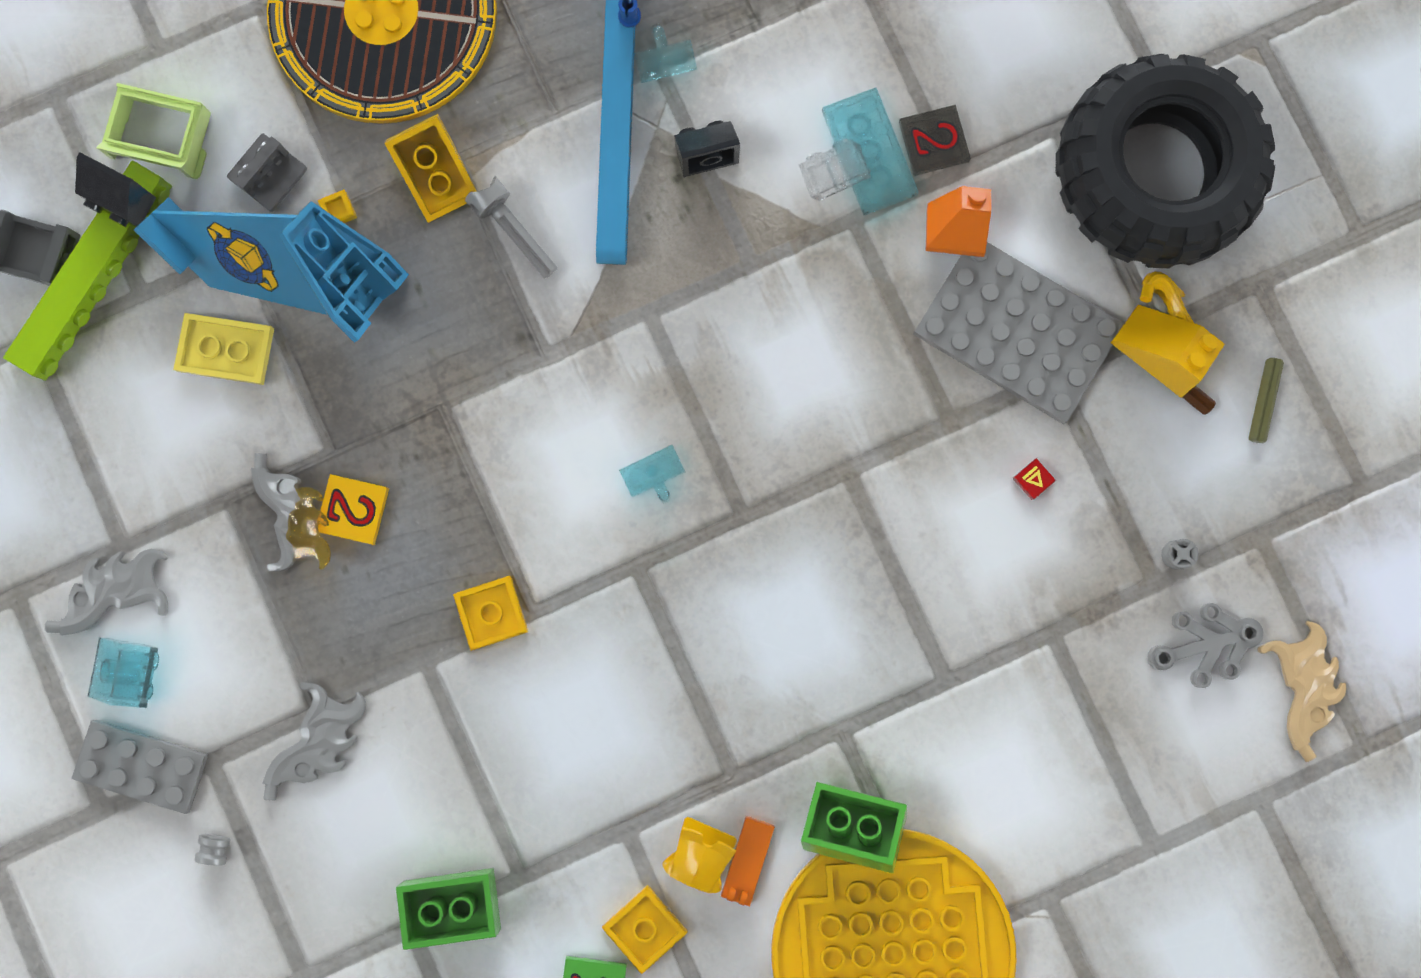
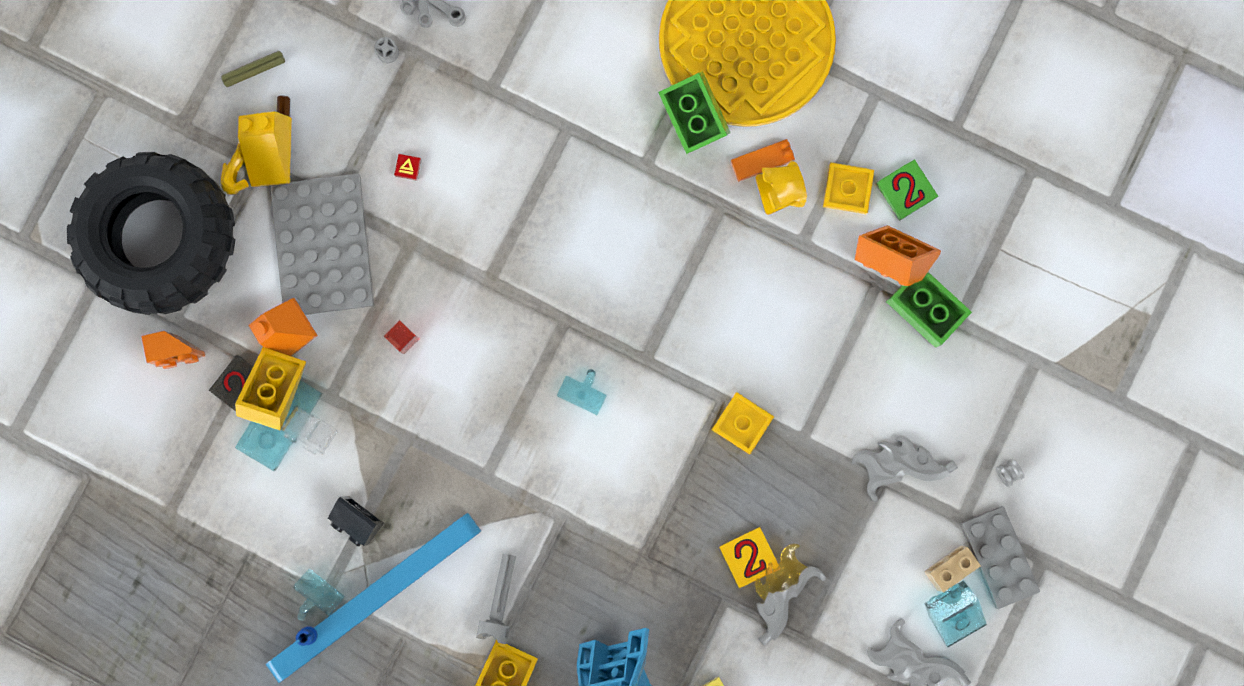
camera: 130 degrees left, 0 degrees up
(167, 706) = (952, 568): none -> tan brick
(528, 919) = (896, 255): none -> orange slope
(856, 333) = (401, 337): none -> clear red panel
(907, 162) = (270, 388): none -> yellow slope
(1026, 94) = (167, 349): none -> orange slope

